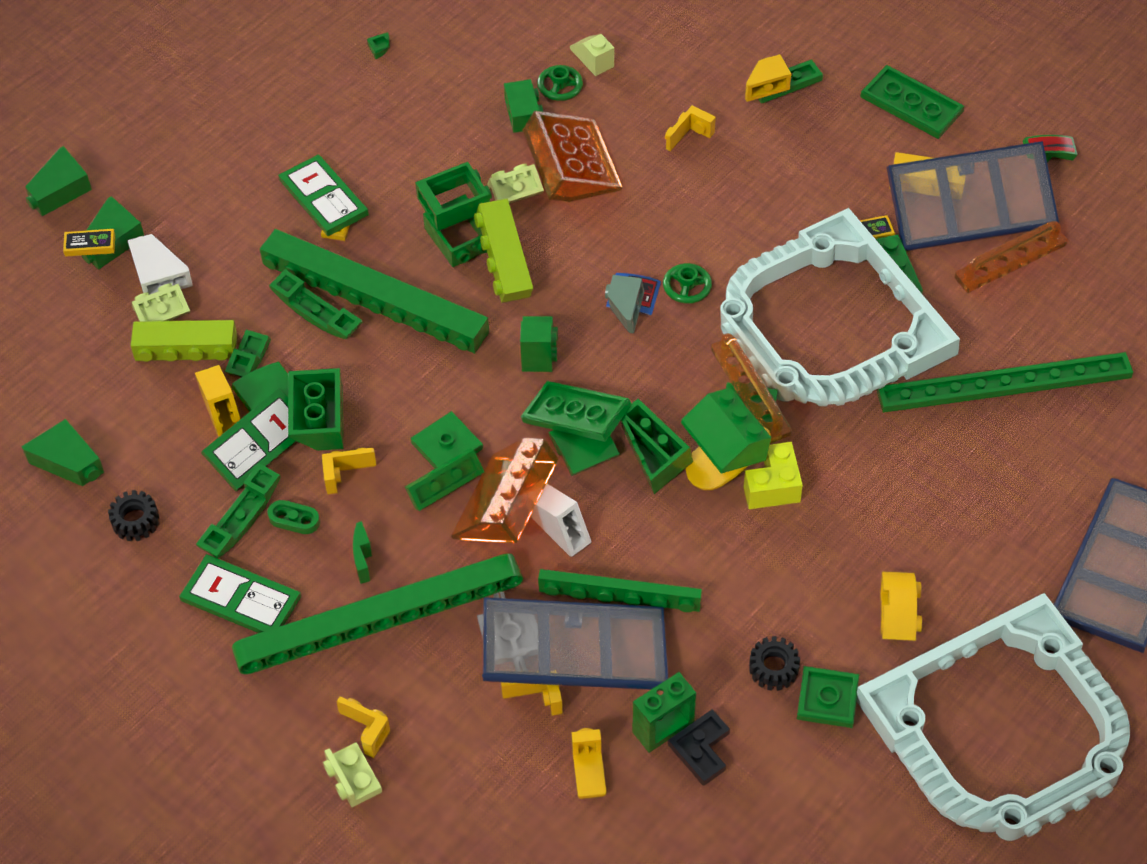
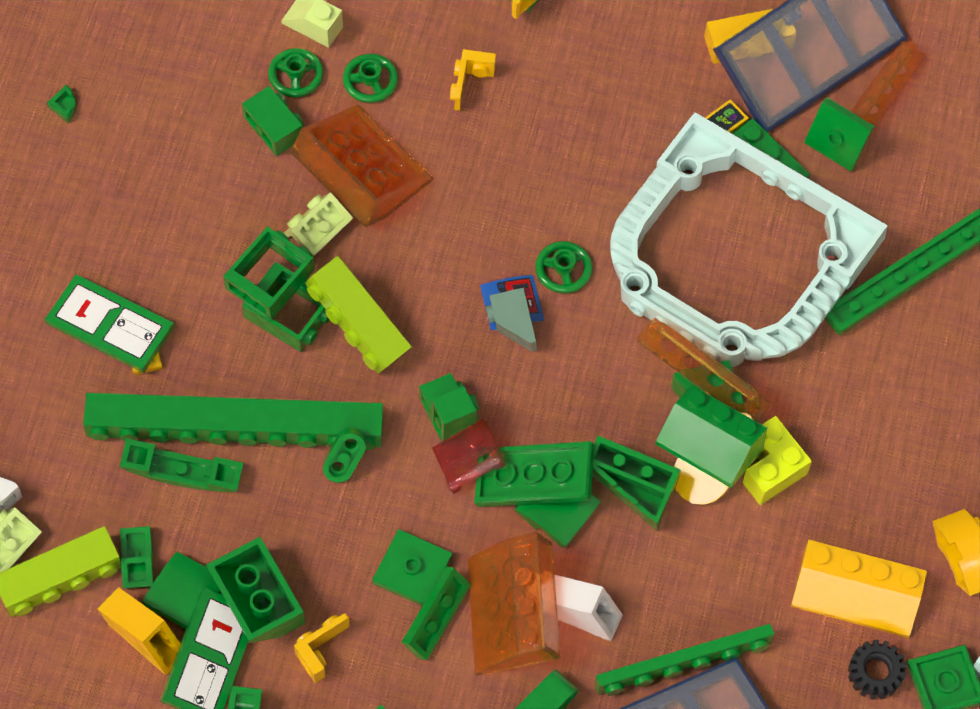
camera: 30 degrees left, 10 degrees up
(440, 341) = (346, 453): none -> green plate
(534, 375) = (465, 448): none -> clear red plate
(613, 100) = (372, 65): none -> green piece
(793, 597) = (858, 588): none -> yellow slope
(959, 265) = (838, 134): none -> green plate

